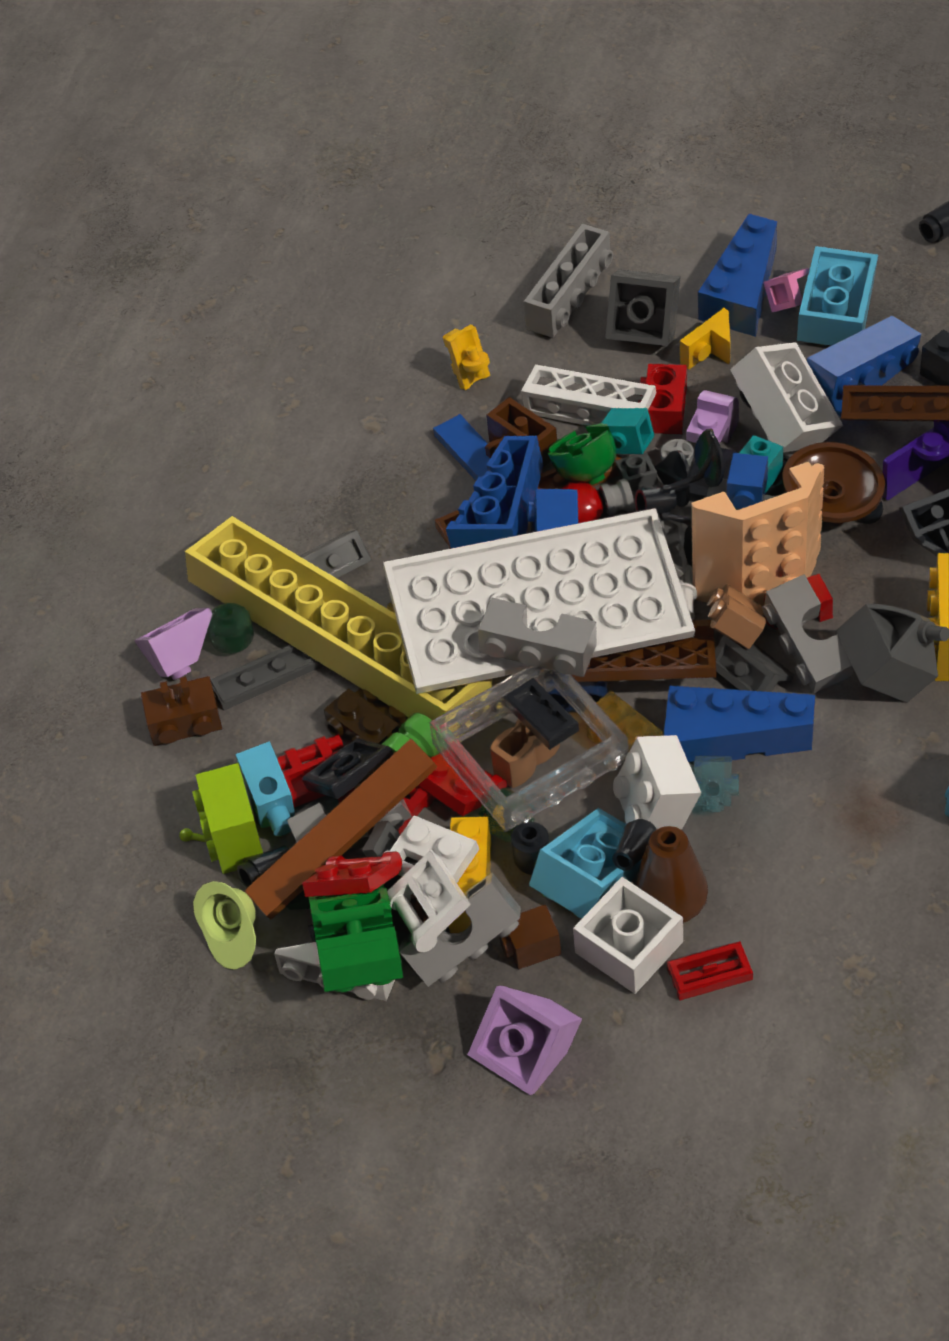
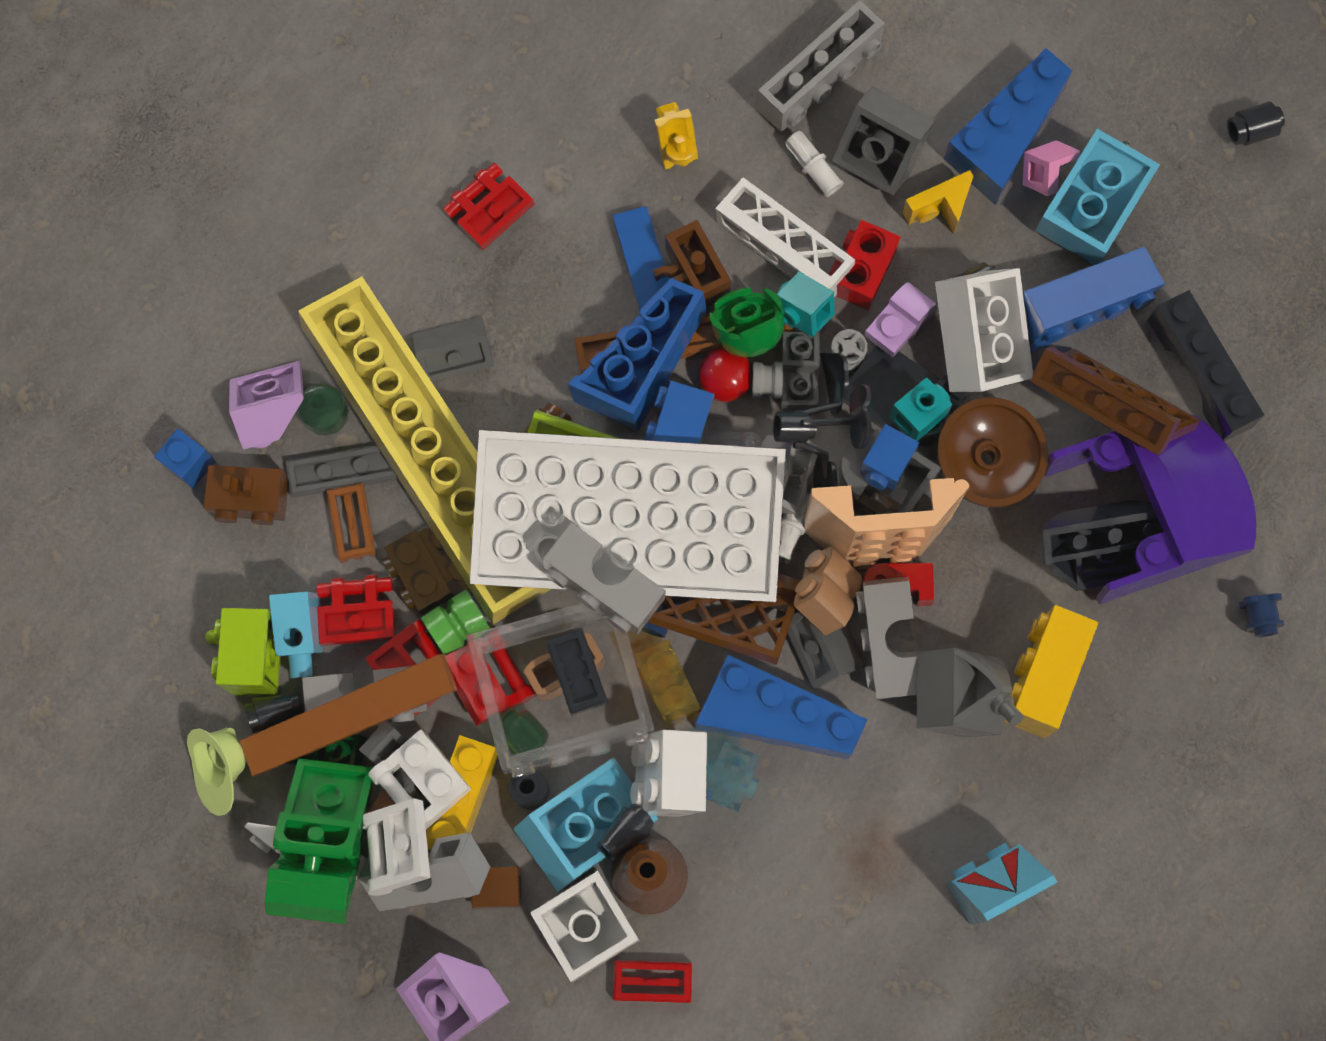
camera: 15 degrees right, 25 degrees up
(115, 701) = (184, 458): none -> blue brick
(296, 727) = (356, 552): none -> dark orange tile
(329, 454) = (494, 212): none -> red plate
(347, 768) = (378, 642): black tile -> none
(352, 875) = (331, 795): red plate -> none
(591, 347) = (814, 163): none -> white axle

